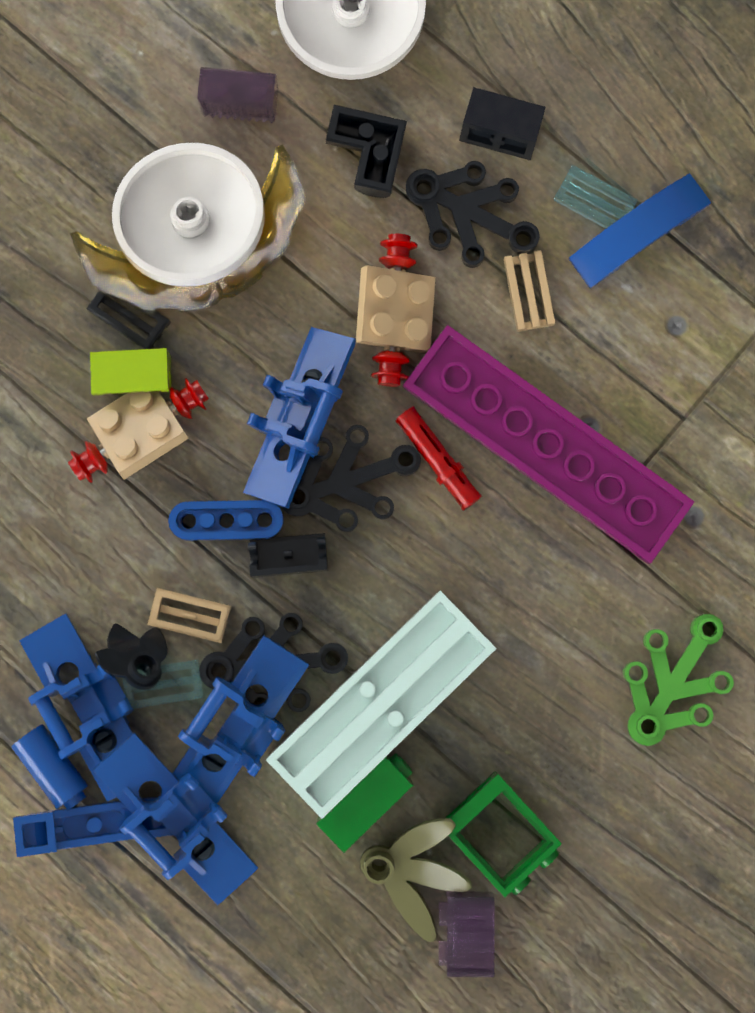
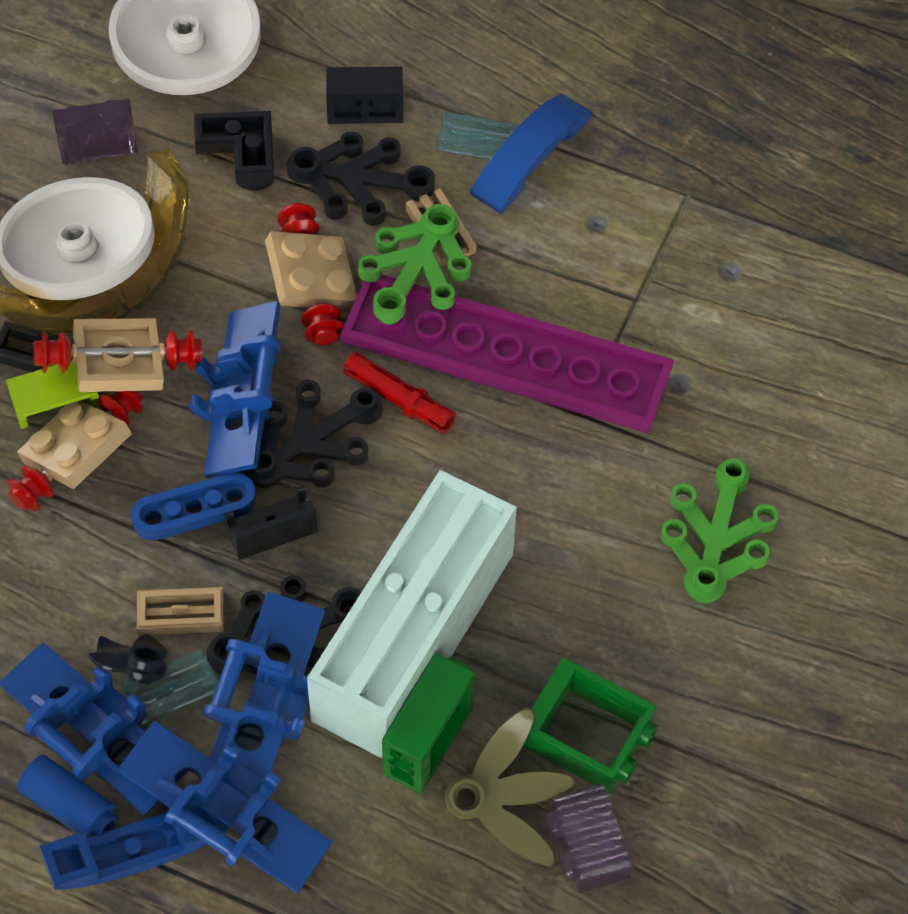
camera: 15 degrees left, 25 degrees down
(194, 360) = (117, 354): none -> tan plate
(495, 329) = (436, 226): none -> bright green plant

